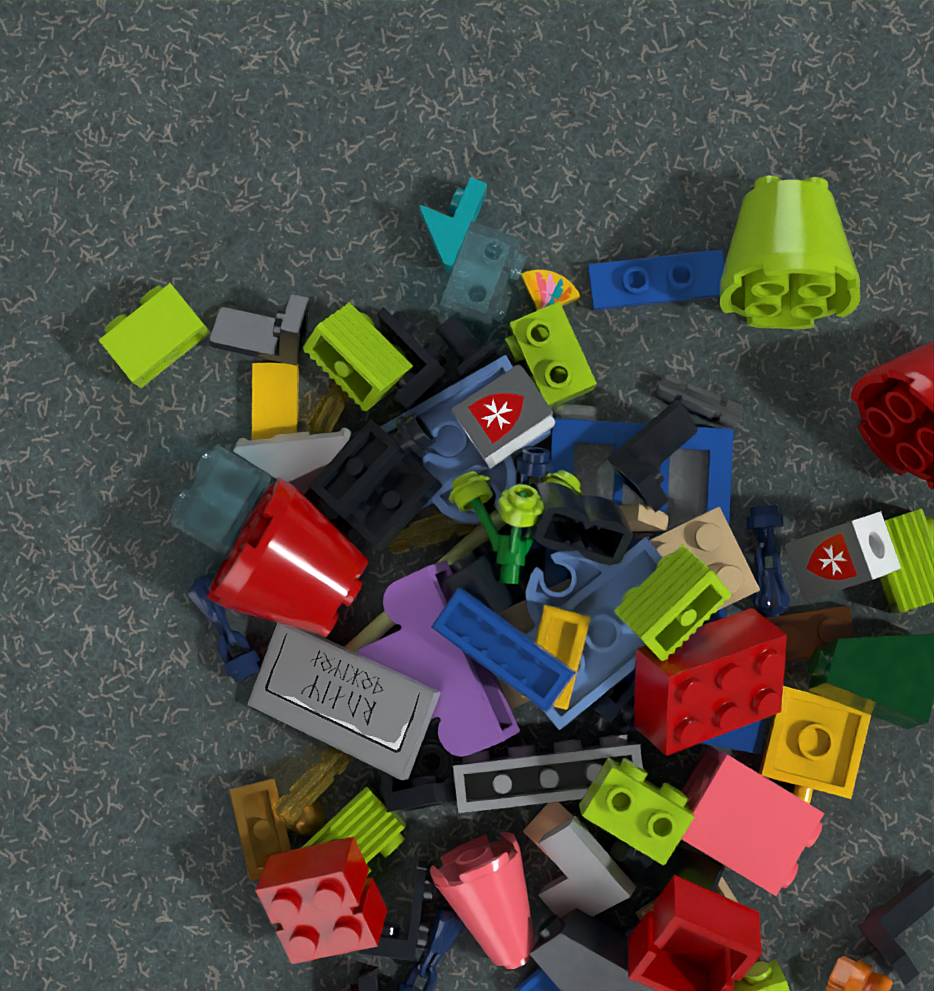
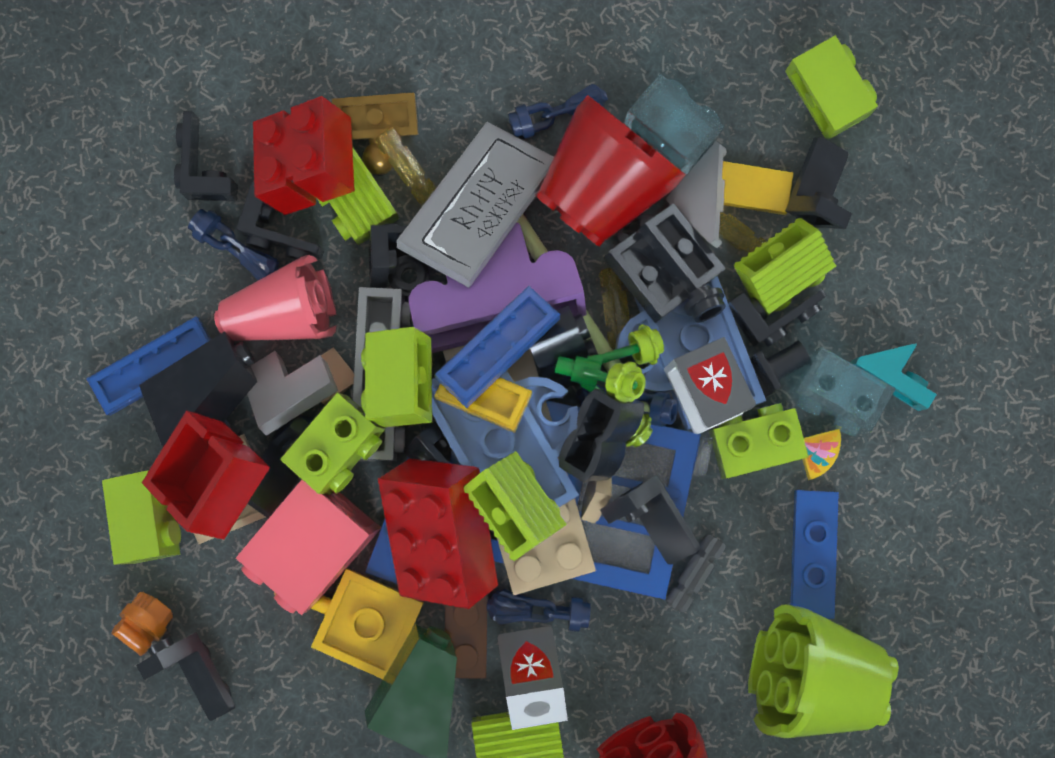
camera: 90 degrees right, 0 degrees up
(554, 752) = (397, 377): none -> lime brick

